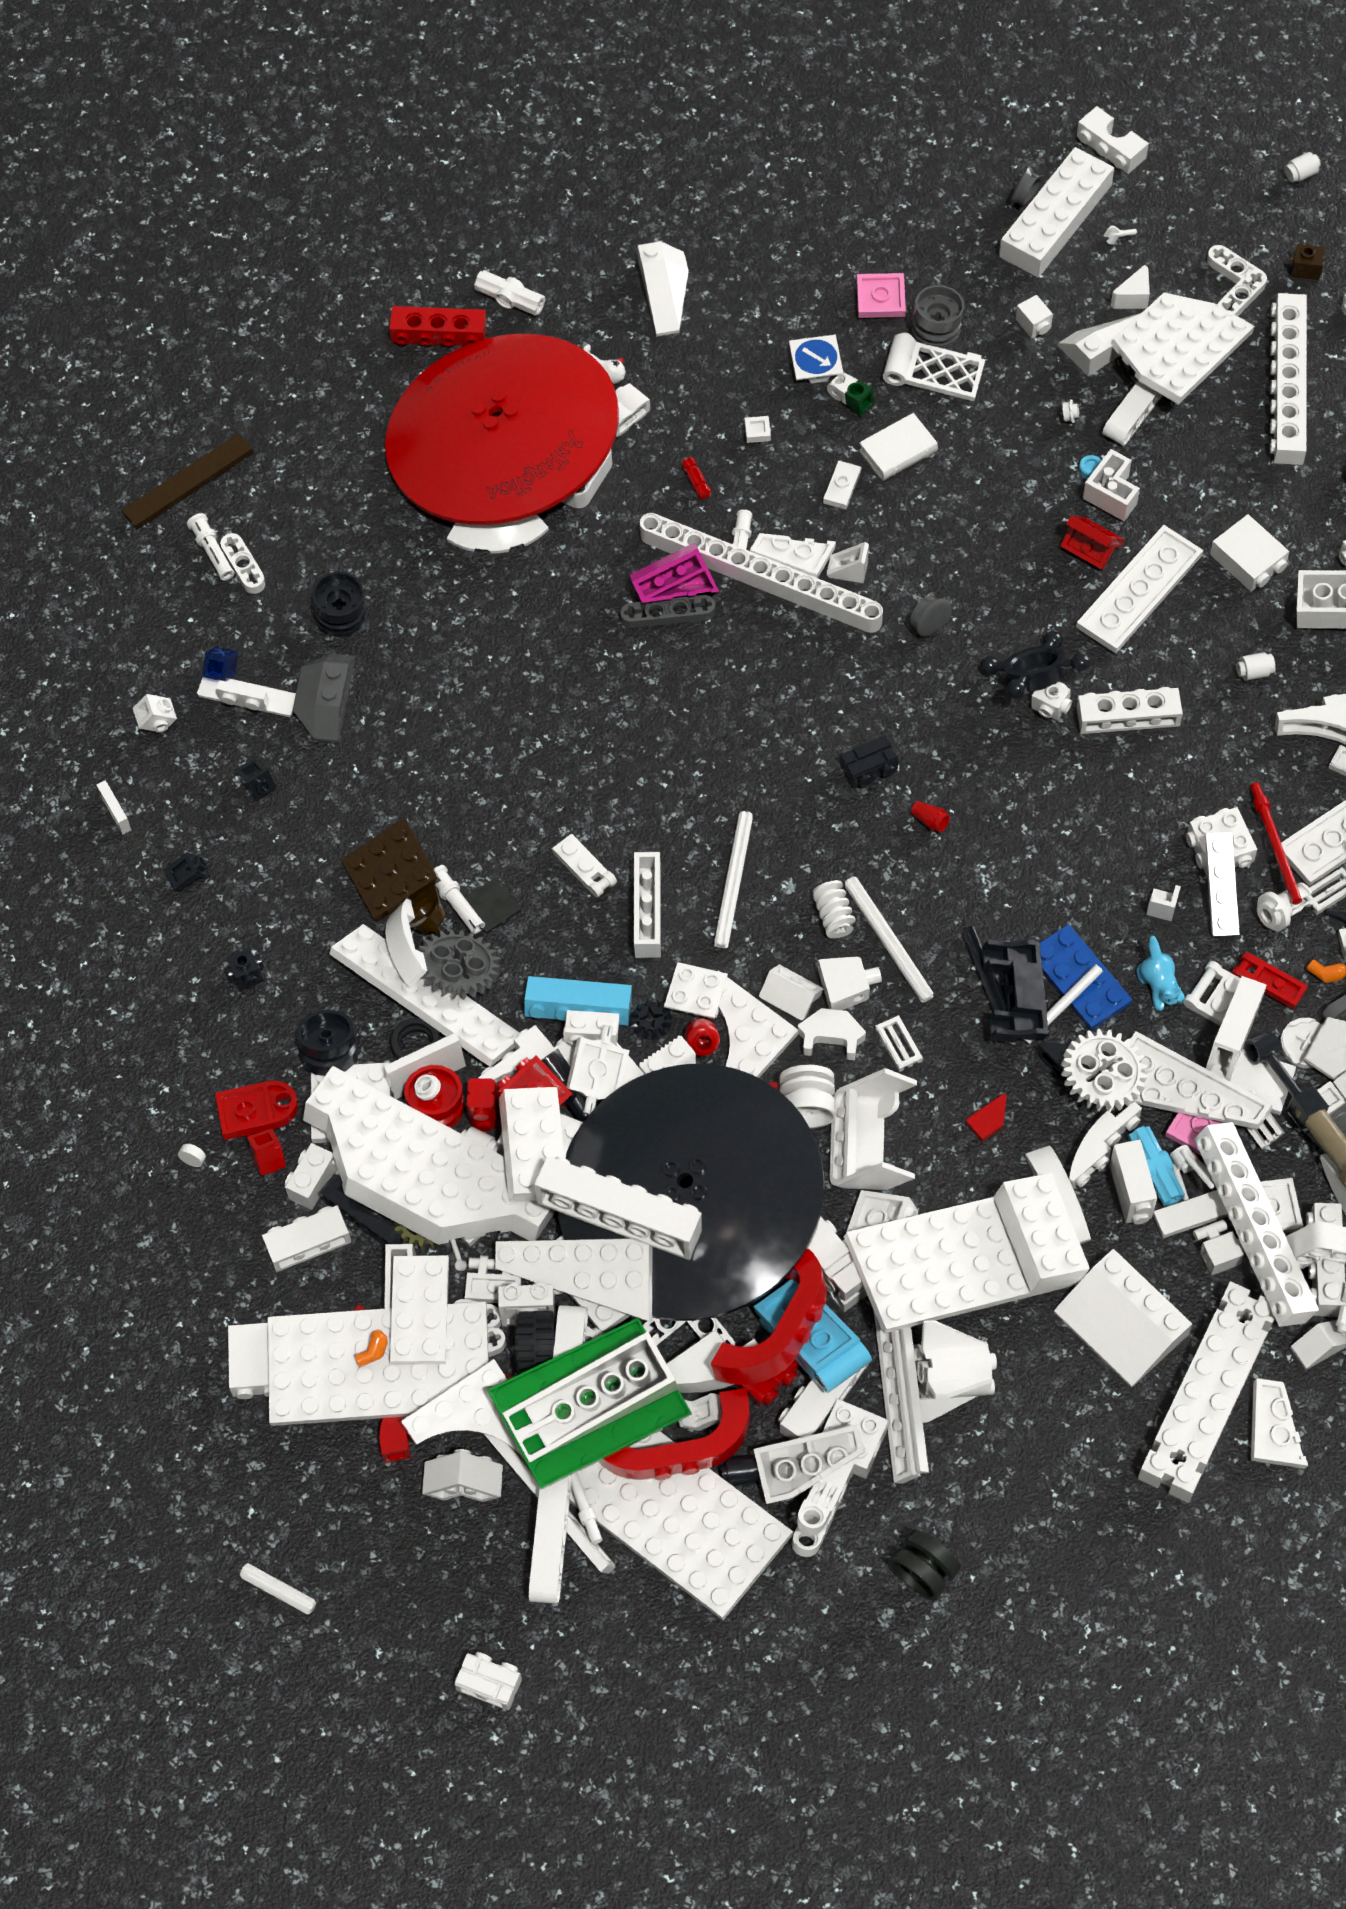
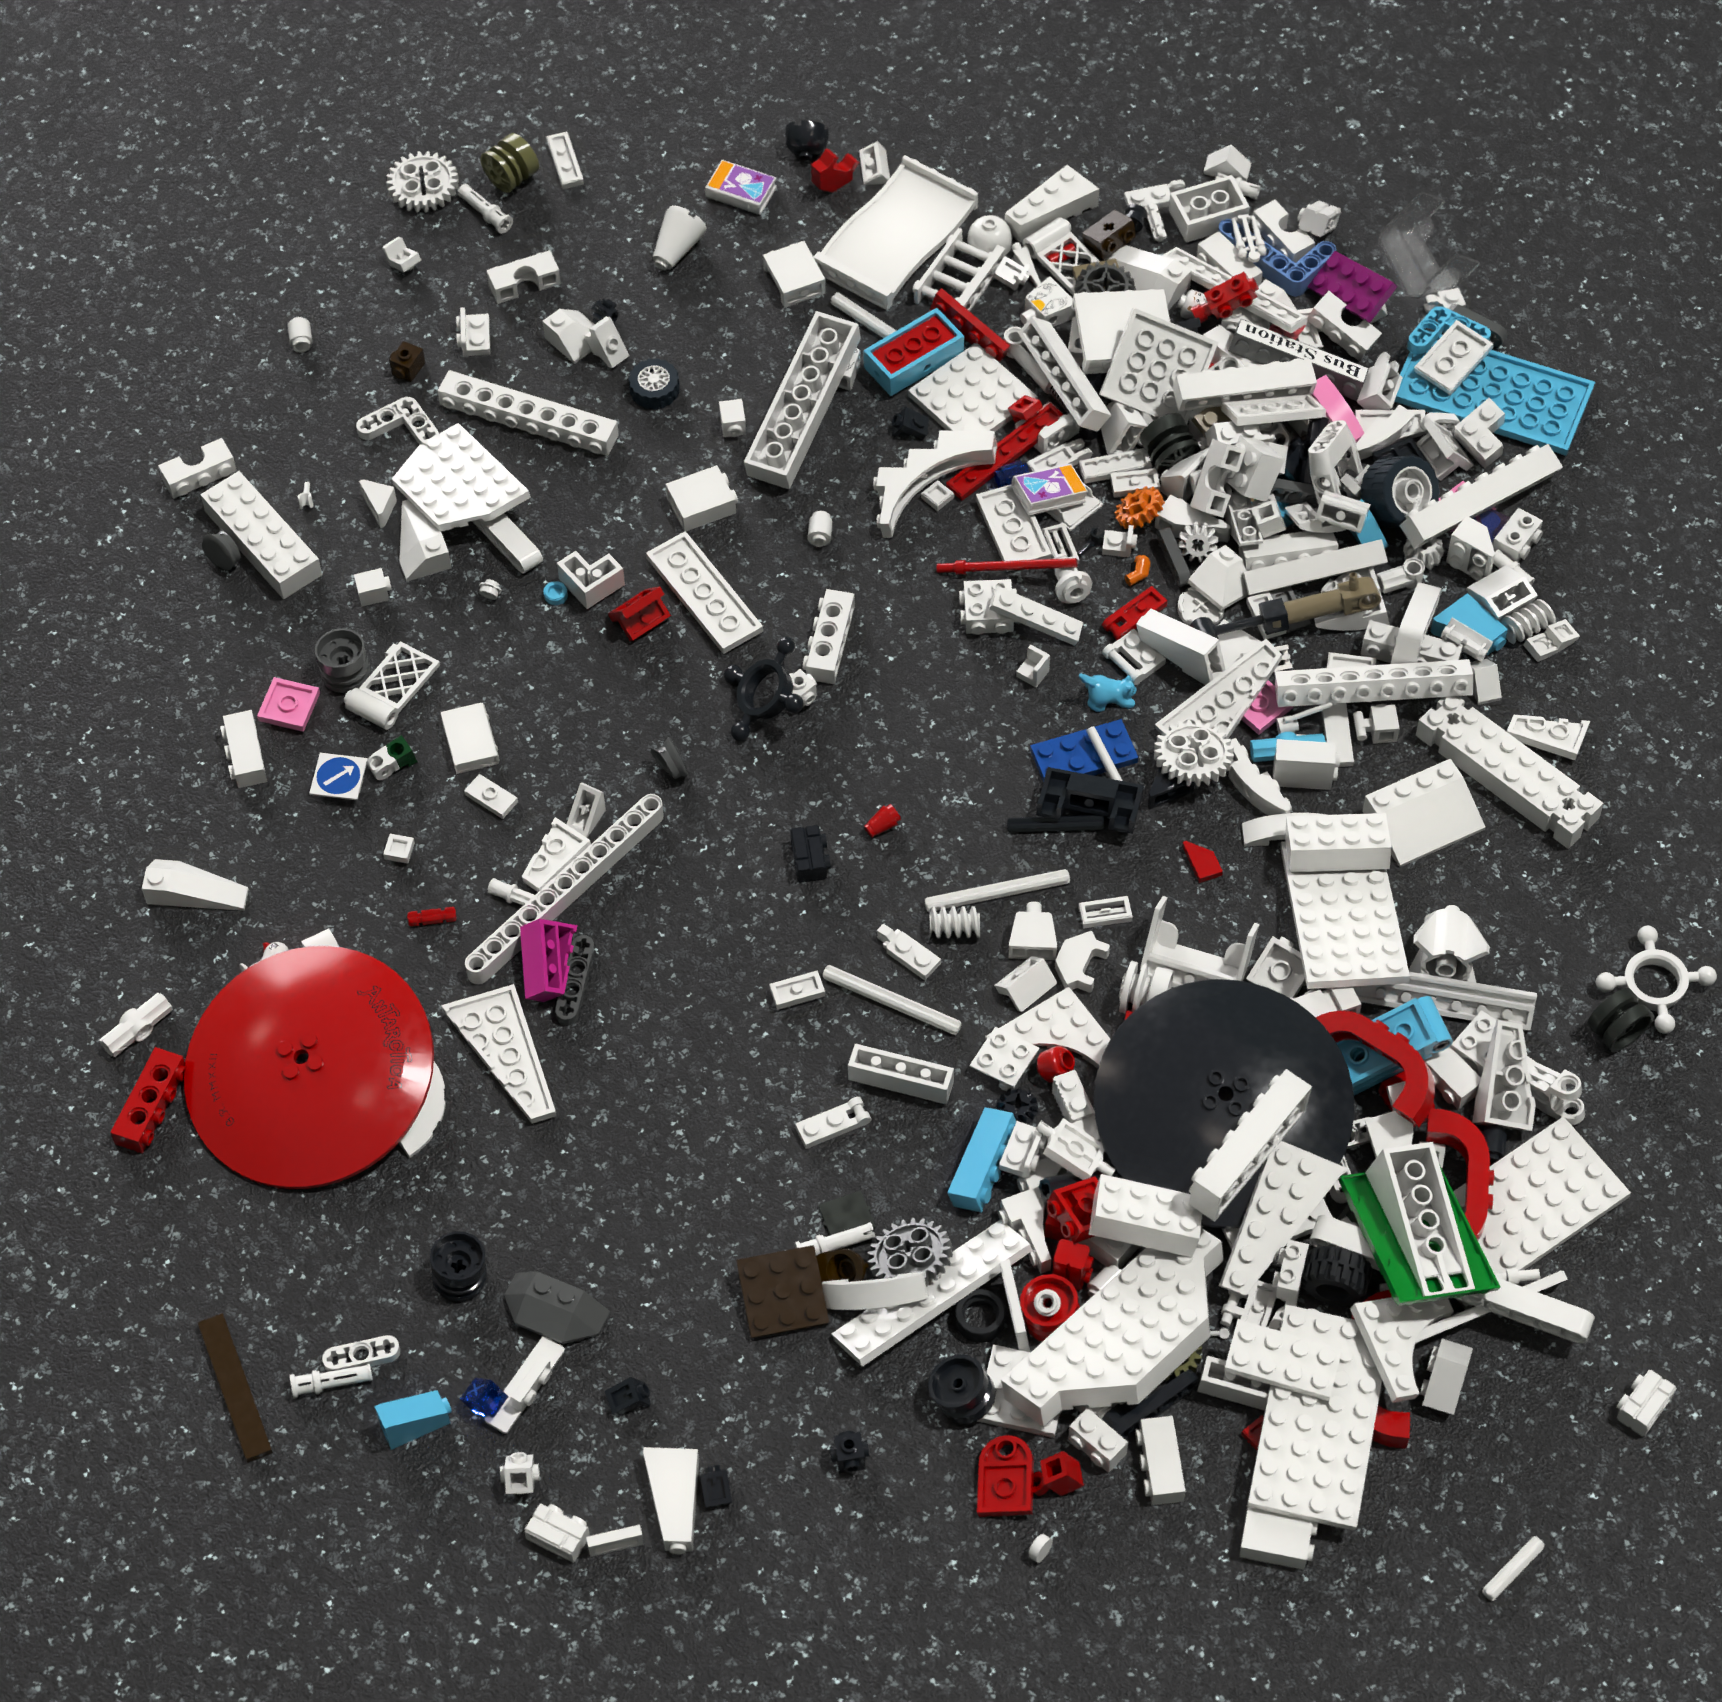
camera: 75 degrees left, 5 degrees down
(111, 760) = (557, 1532): none -> white brick
(166, 840) = (674, 1492): none -> white slope
(186, 614) = (412, 1417): none -> medium azure slope
(375, 1349) = (1316, 1409): orange arm -> none
(580, 574) = (501, 1038): none -> white wing
(715, 795) = (797, 990): none -> white plate
(792, 880) = (908, 952): none -> white hinge
(819, 277) = (243, 749): none -> white brick
(974, 1546) = (1648, 936): none -> white piece

